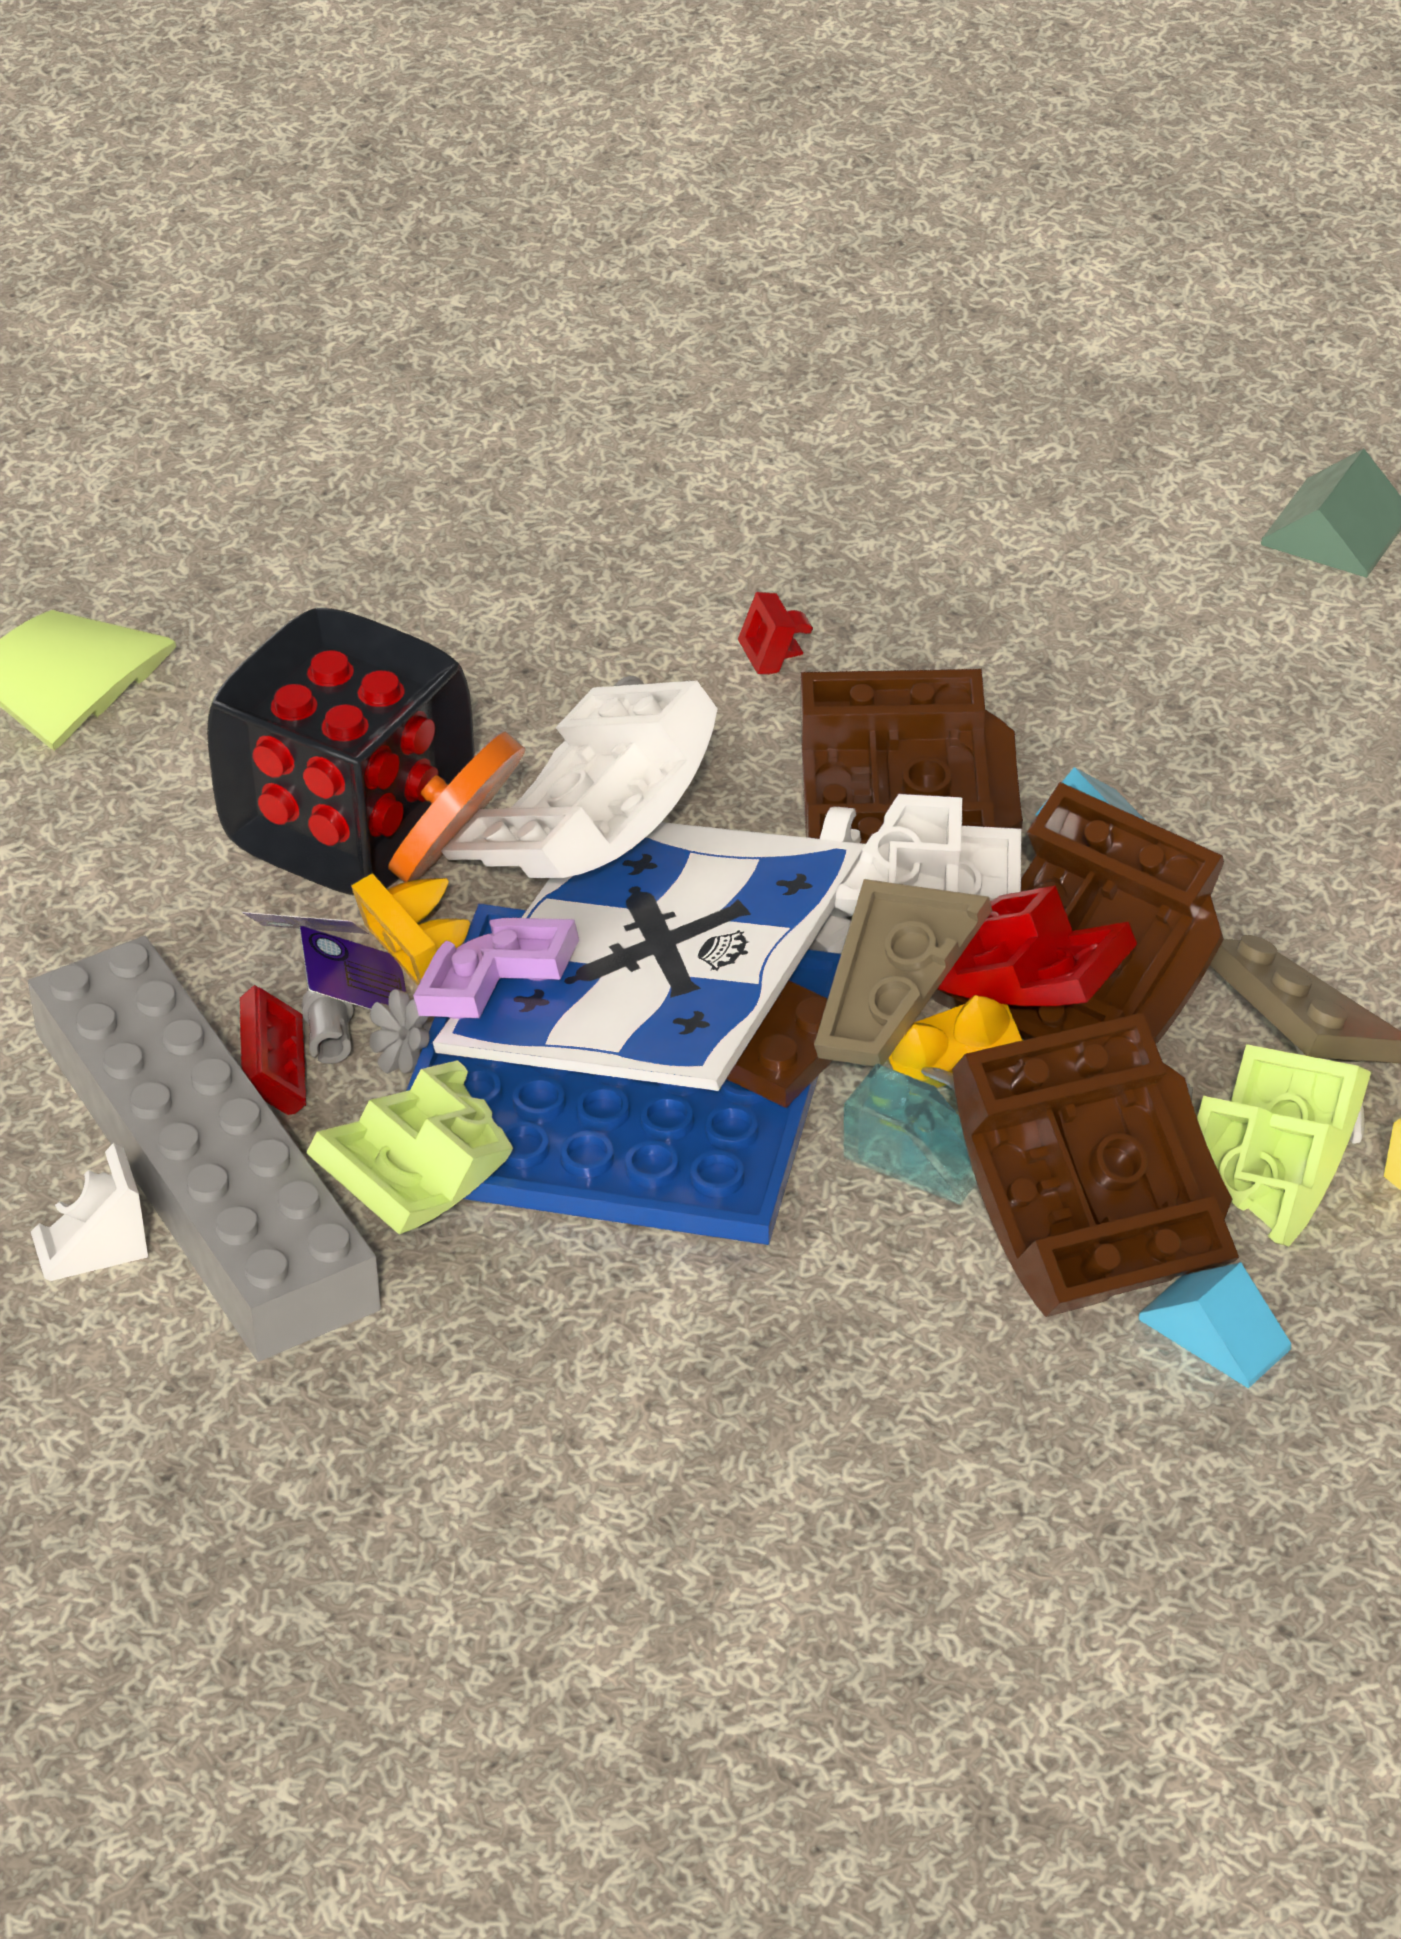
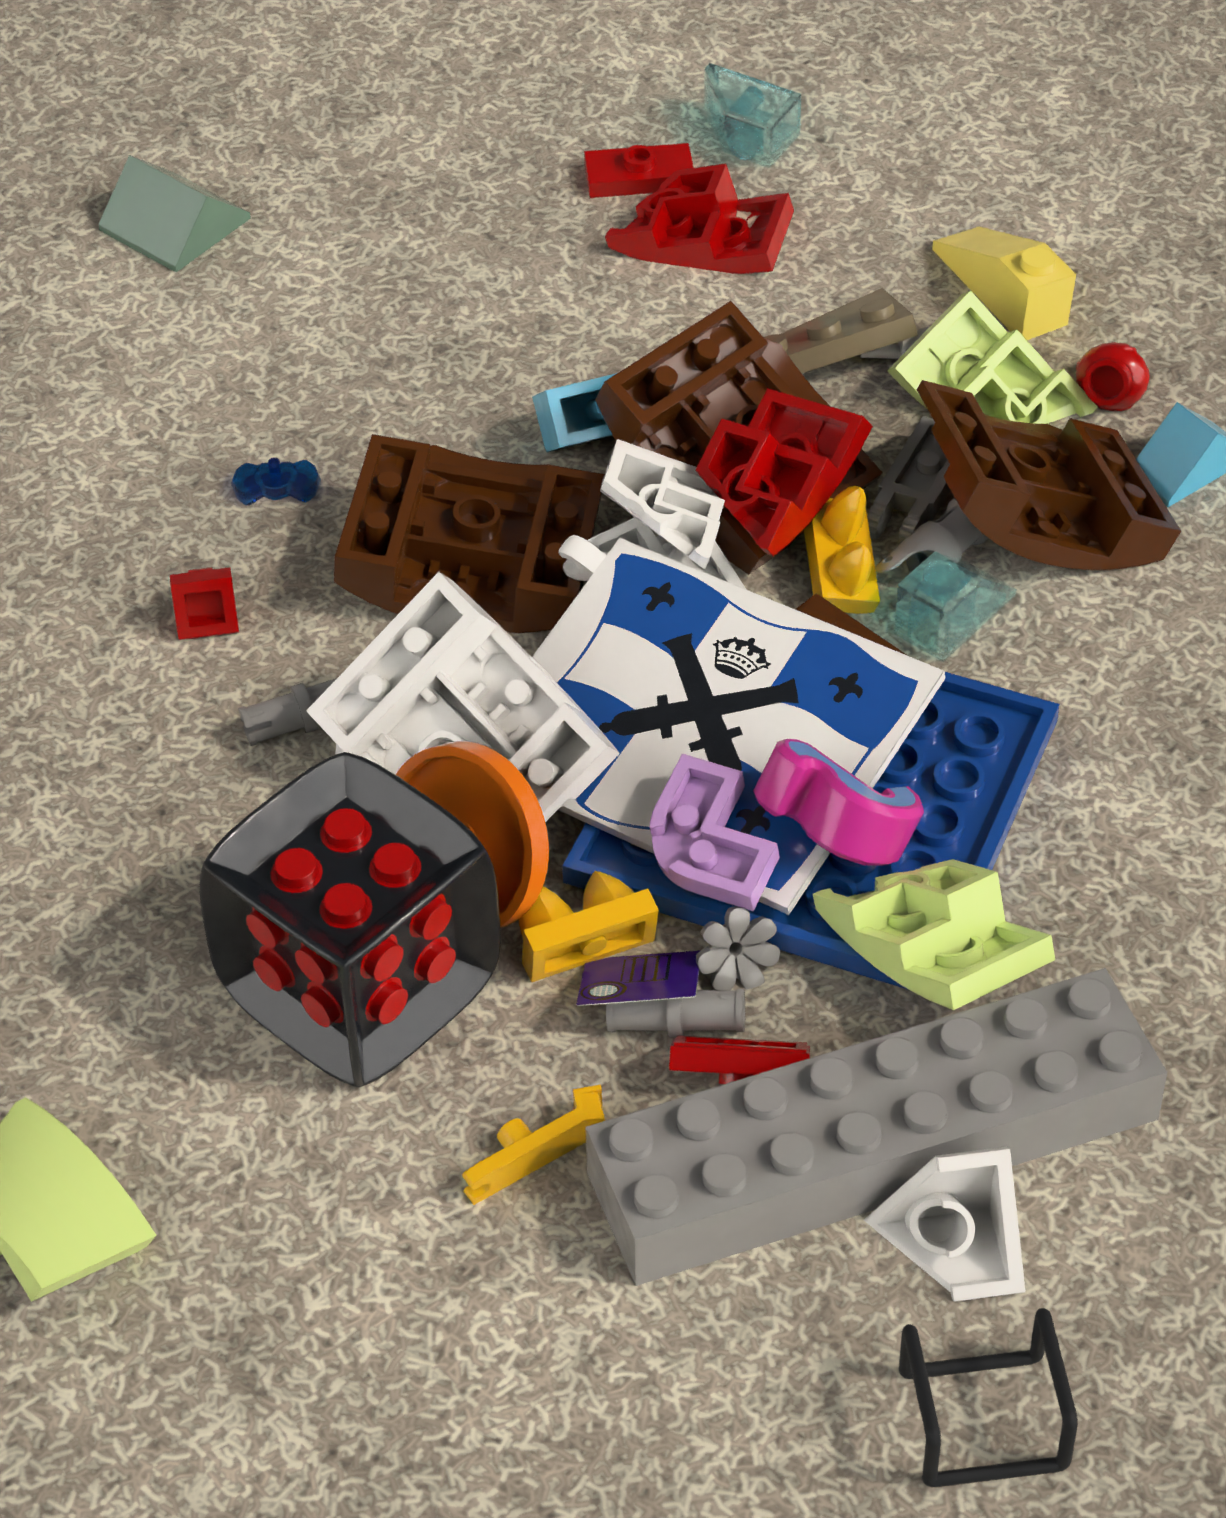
camera: 80 degrees left, 5 degrees up
(199, 969) = (529, 1150): none -> yellow piece
(313, 923) = (563, 1005): sticker -> none
(504, 1039) = (837, 806): none -> dark pink animal
(892, 964) = (798, 538): dark tan wing -> none
(965, 651) = (276, 481): none -> clear blue piece
(1320, 1237) = (1113, 376): none -> red animal

